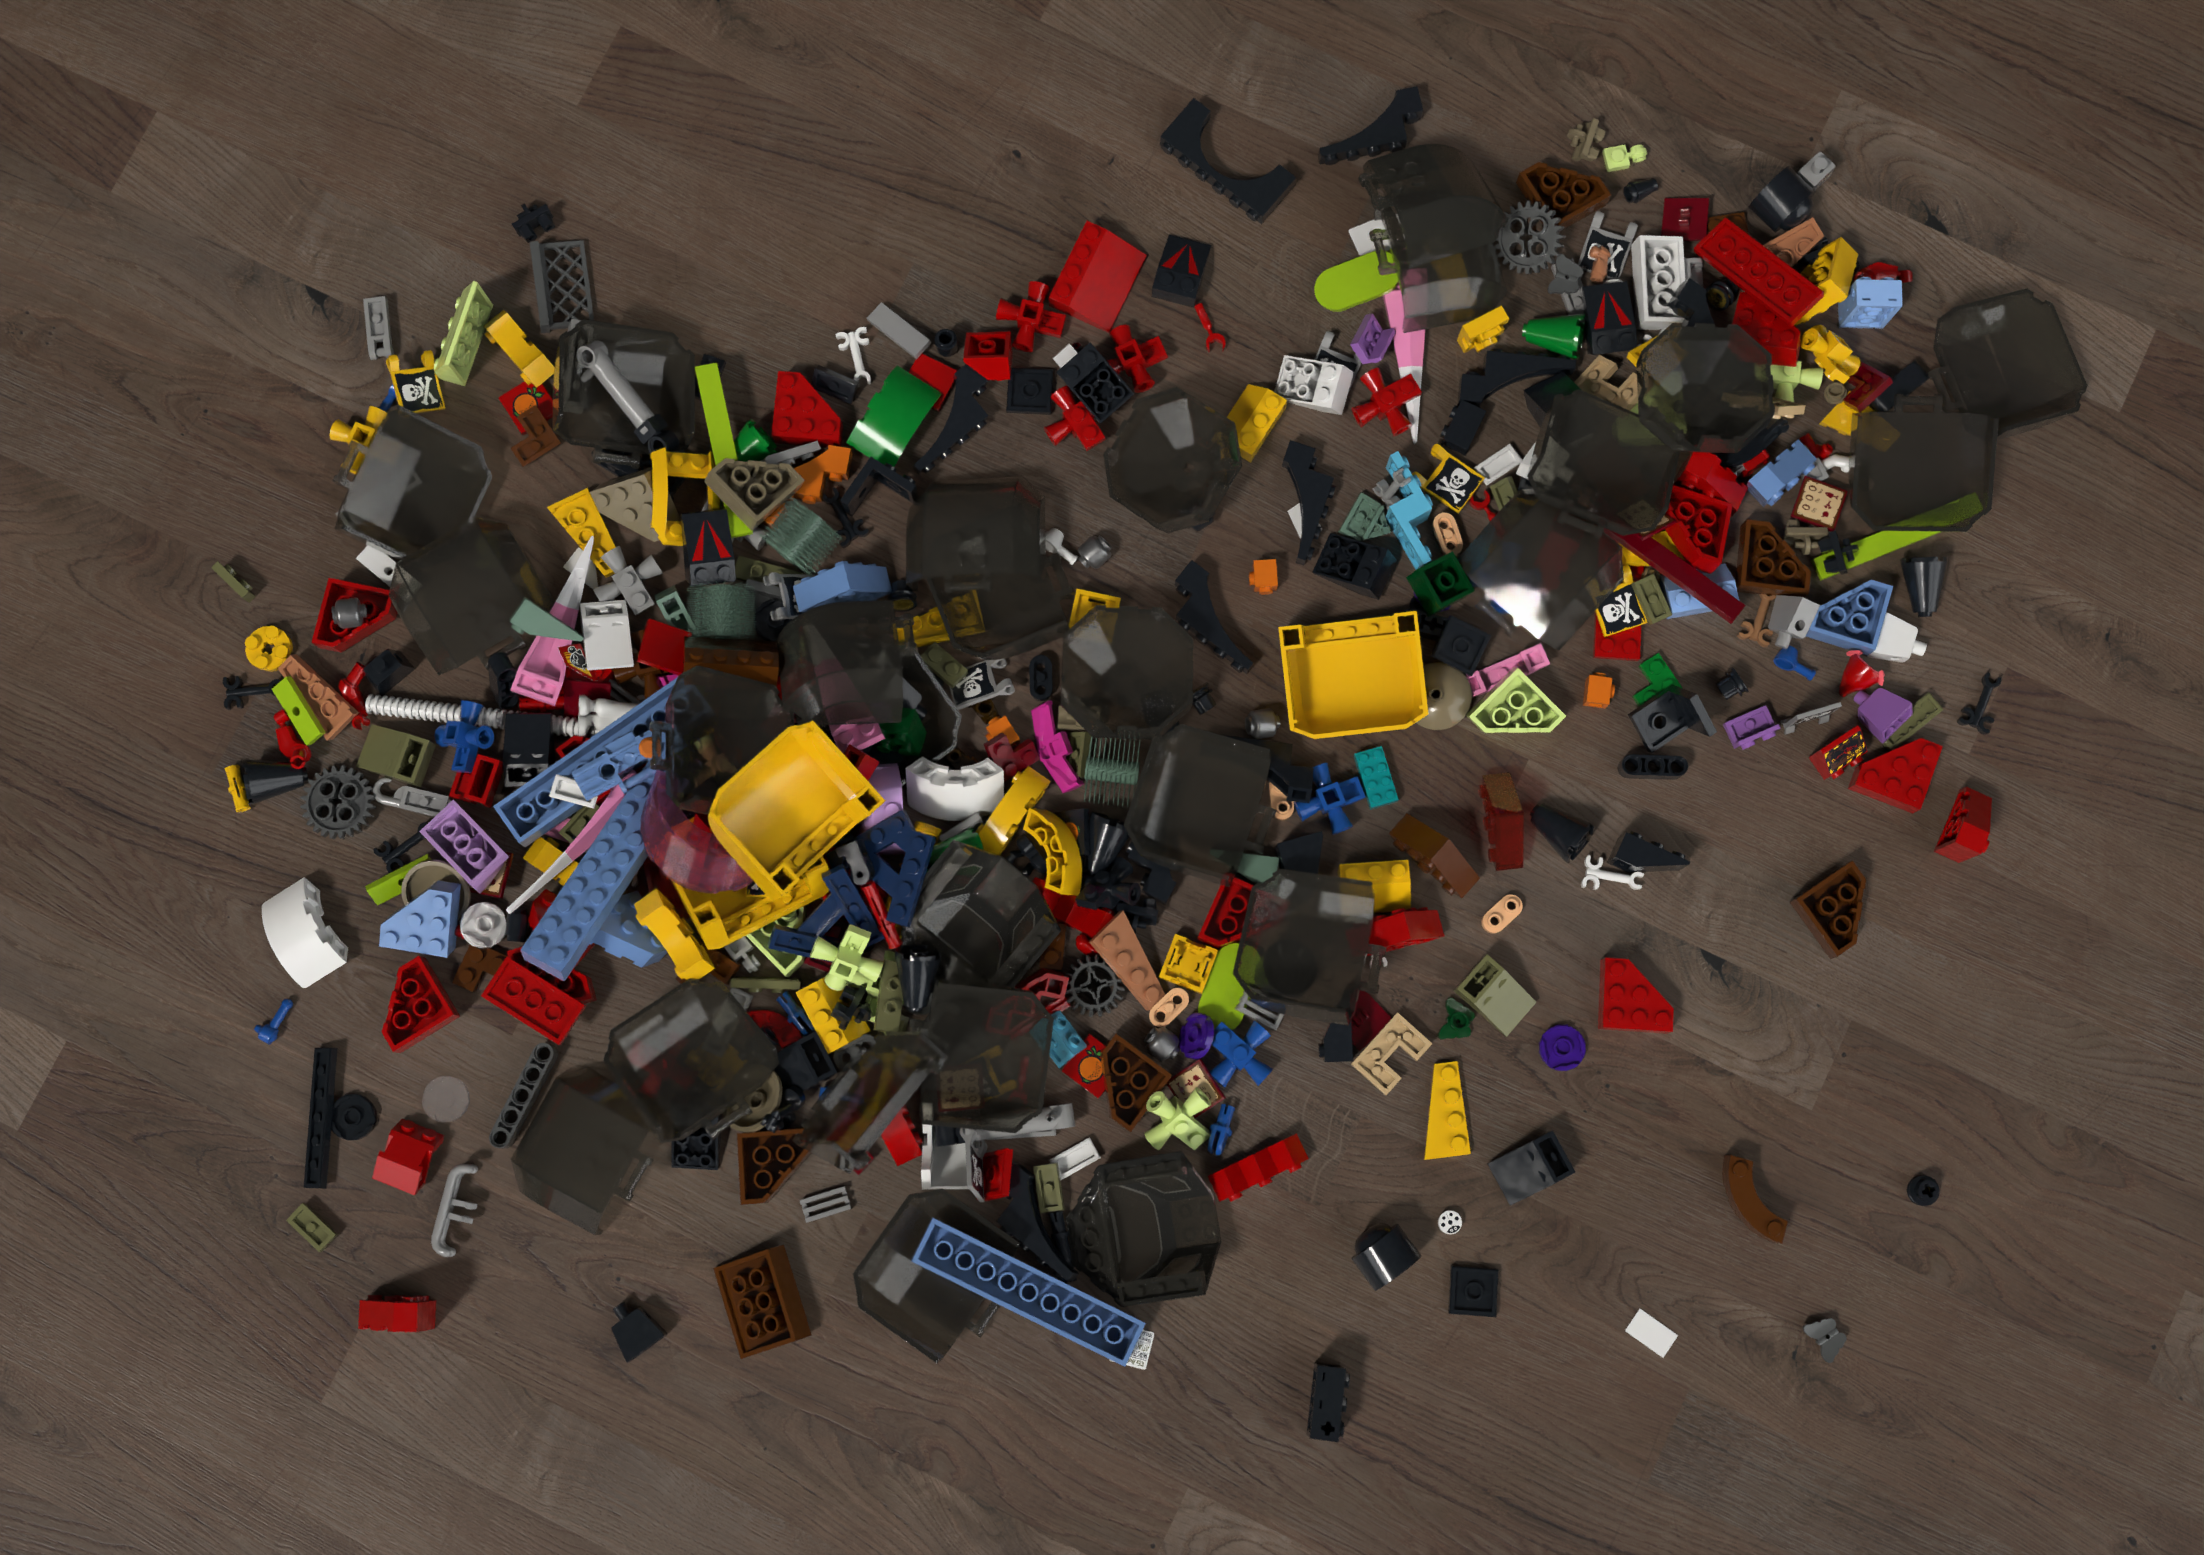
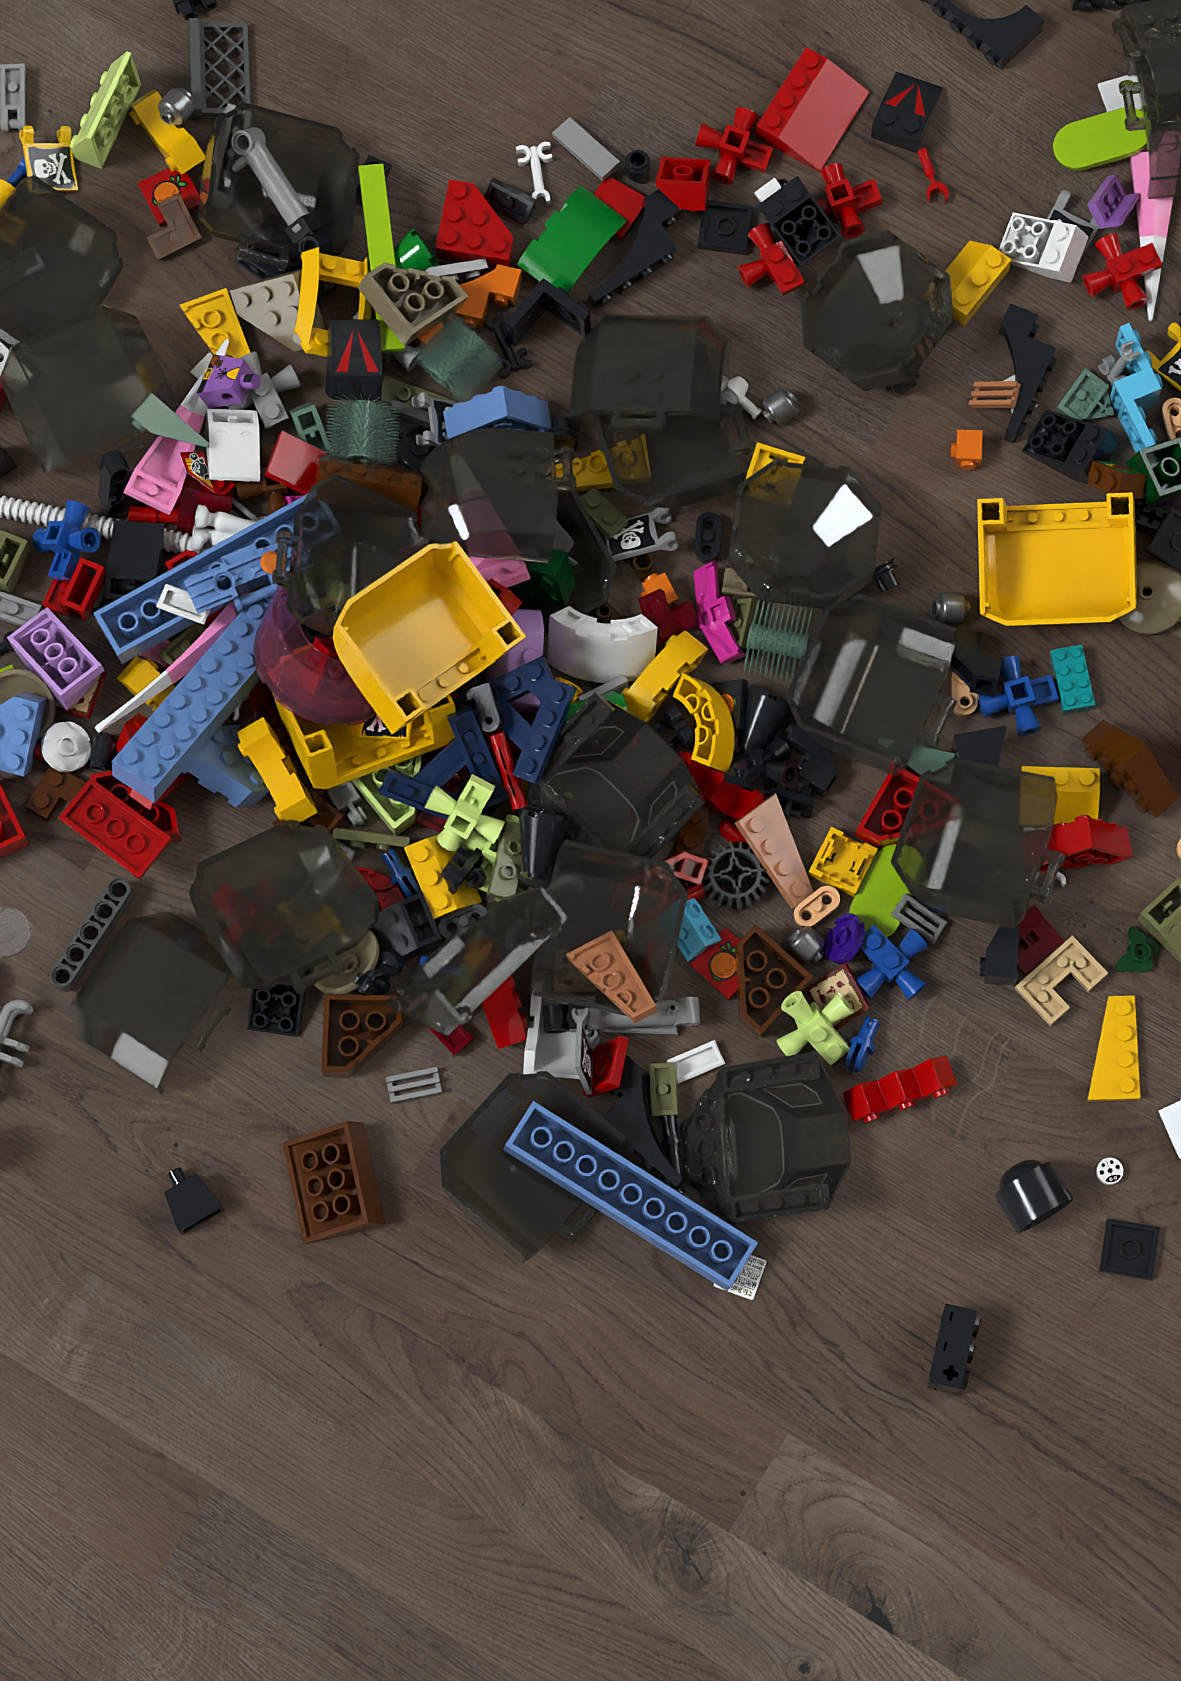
camera: 10 degrees right, 5 degrees down
(525, 325) = (176, 106): none -> flat silver head
(595, 577) = (227, 382): none -> medium lavender torso
(992, 1092) = (614, 975): none -> nougat wing
(1201, 619) = (893, 489): black arch -> none
(1283, 516) = (1006, 388): none -> nougat tile
(1399, 594) = (1116, 478): none -> reddish brown brick

